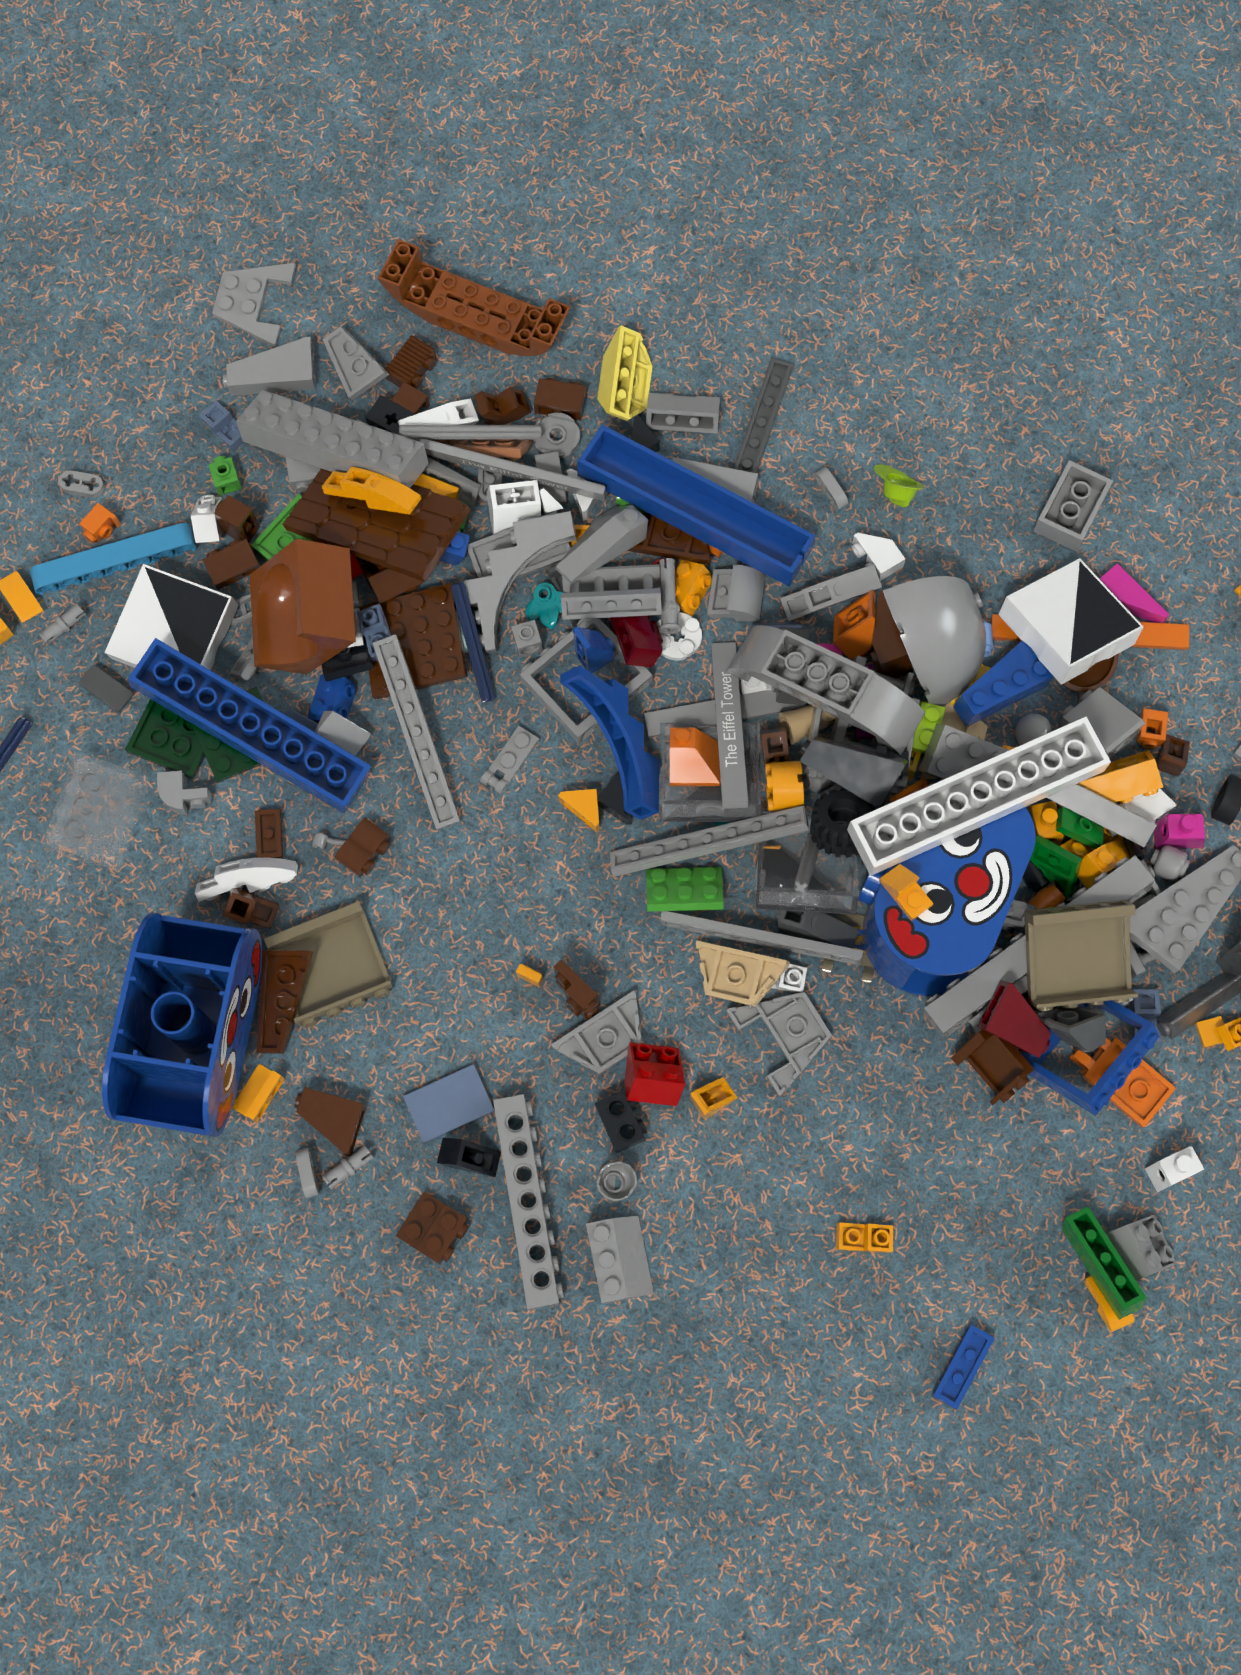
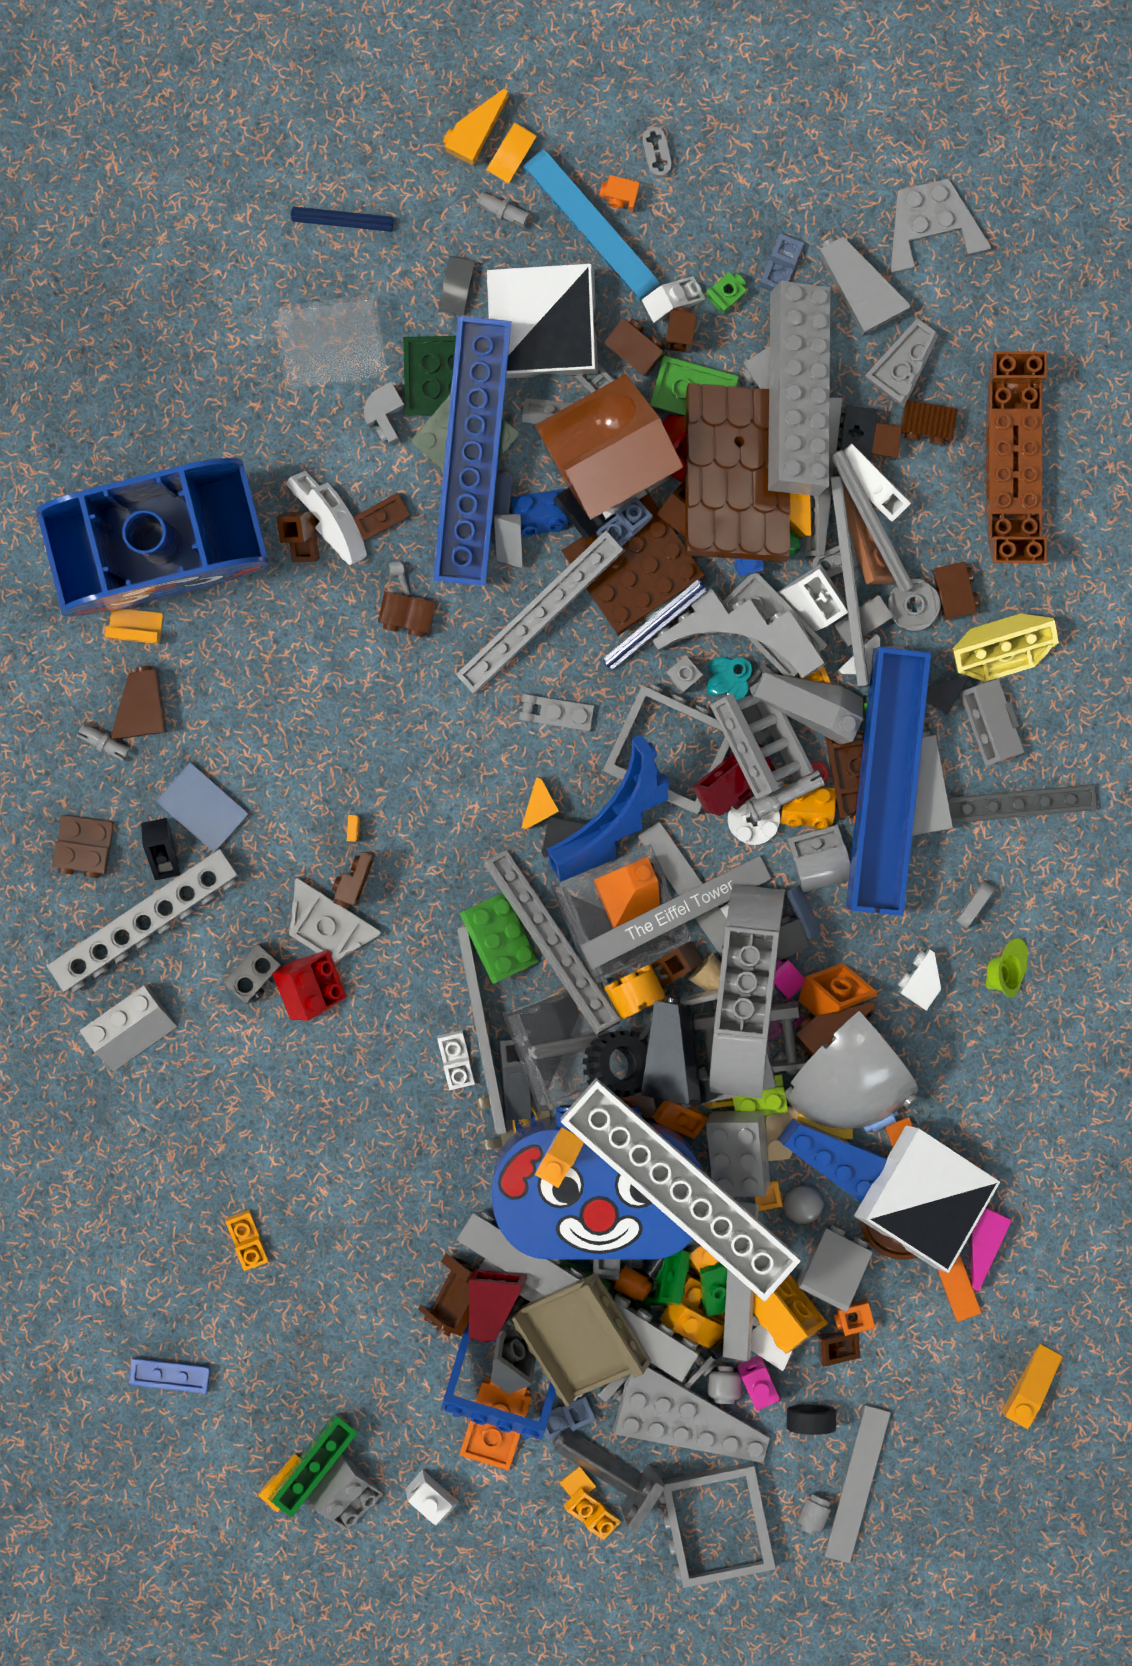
camera: 60 degrees right, 15 degrees up
(280, 992) = (233, 603): reddish brown wing -> none
(307, 1172) = (82, 707): light grey beam -> none
(343, 965) = (281, 636): dark tan panel -> none
(376, 489) = (759, 458): light orange slope -> none
(504, 407) = (920, 537): reddish brown brick -> none
(548, 503) = (833, 633): white slope -> none
(592, 649) = (692, 750): blue slope -> none
(606, 1180) = (194, 984): light grey hair -> none
(712, 1097) = (313, 1049): light orange slope -> none
(738, 973) = (438, 1022): tan wing -> none
(794, 1028) = (411, 1097): light grey wing -> none
(831, 592) = (860, 953): light grey slope -> none
(1073, 505) = (1057, 1153): light grey brick -> none

